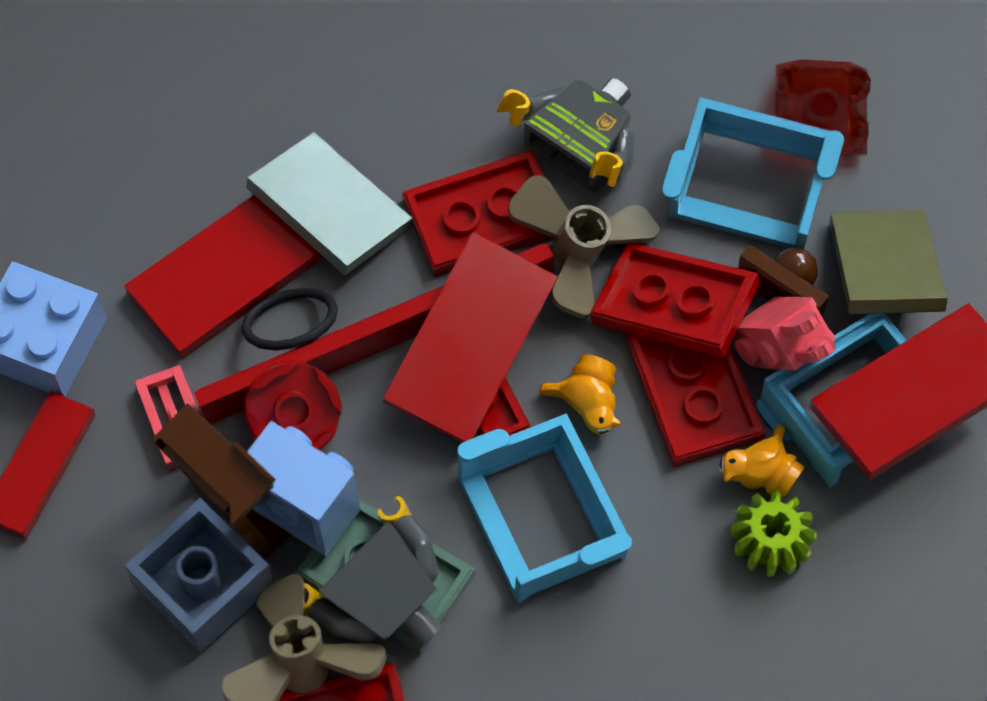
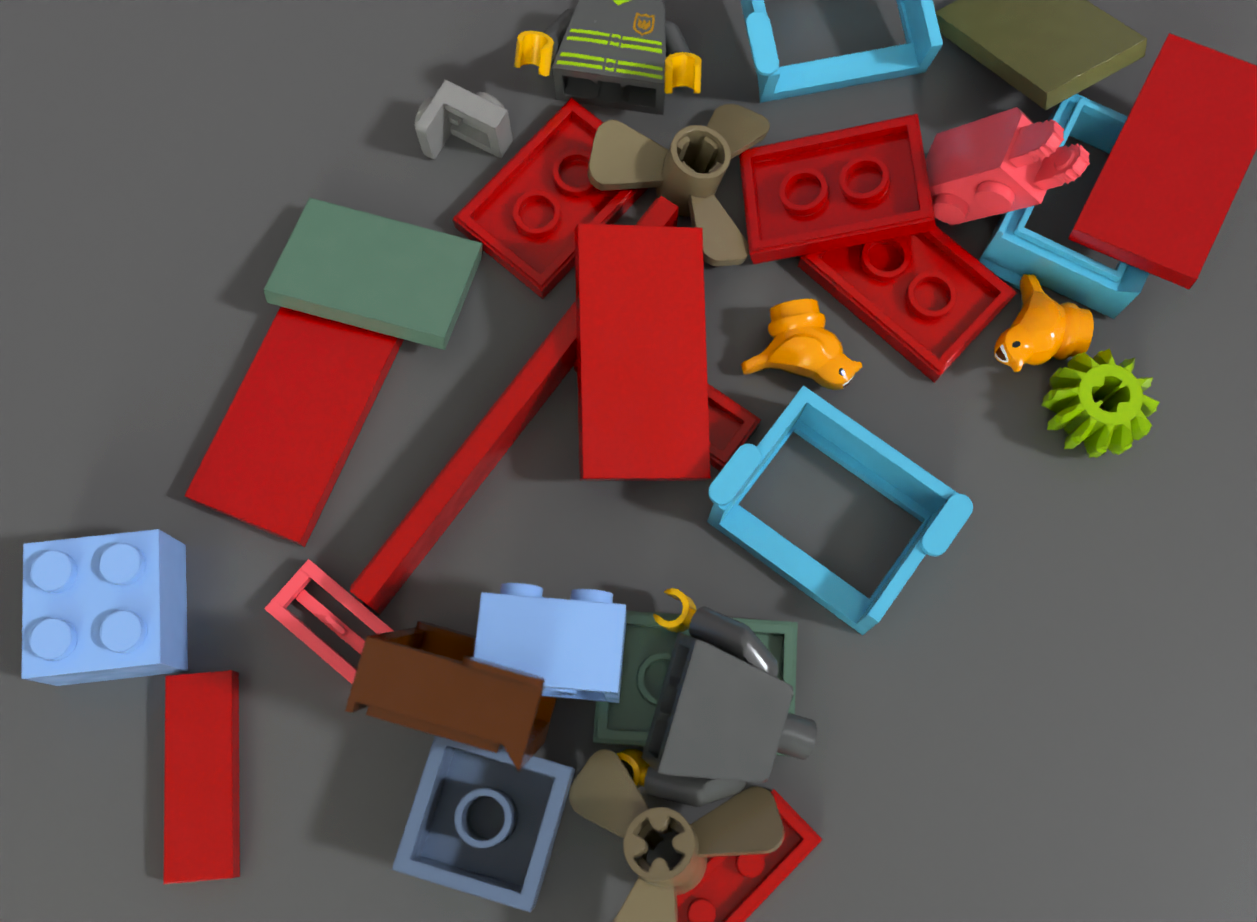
camera: 30 degrees left, 10 degrees up
(295, 397) = (475, 542): red tile -> none
(297, 341) = (437, 464): black piece -> none
(443, 119) = (467, 115): none -> light grey bracket
(787, 275) = (939, 99): reddish brown tile -> none

